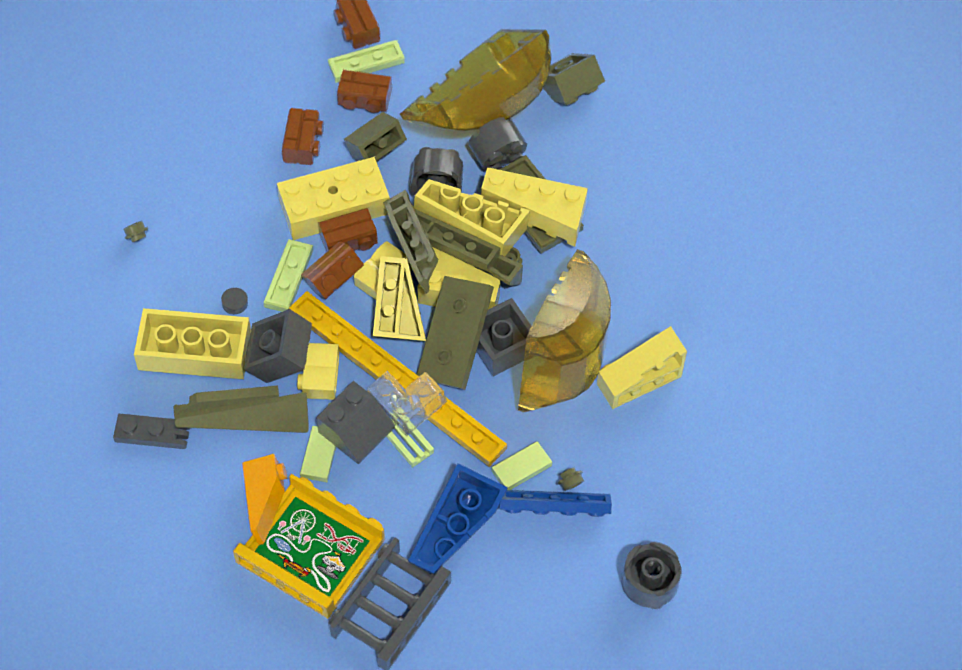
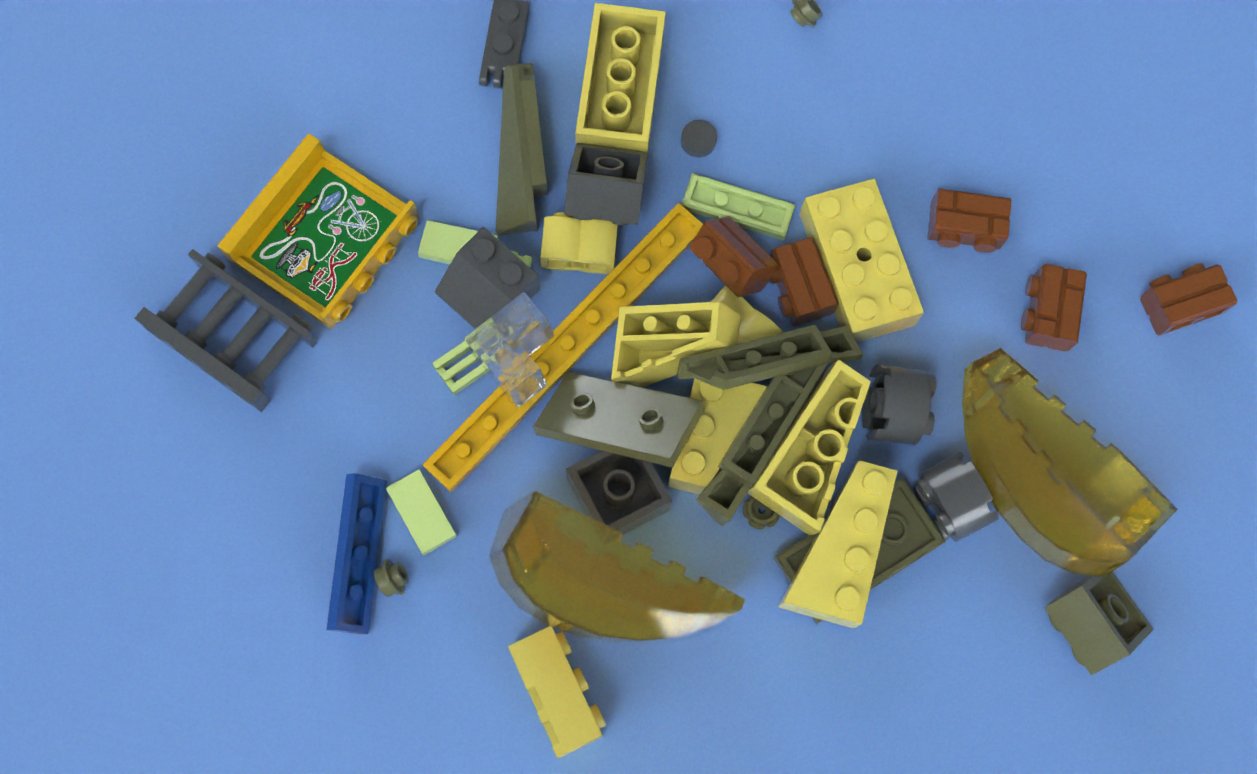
camera: 90 degrees right, 15 degrees up
(264, 492) = (391, 170): light orange slope -> none
(367, 59) = (1117, 315): yellowish green tile -> none
(375, 138) = (963, 318): olive brick -> none
(460, 512) = (340, 420): blue wedge -> none
(637, 579) = (204, 690): dark grey brick -> none

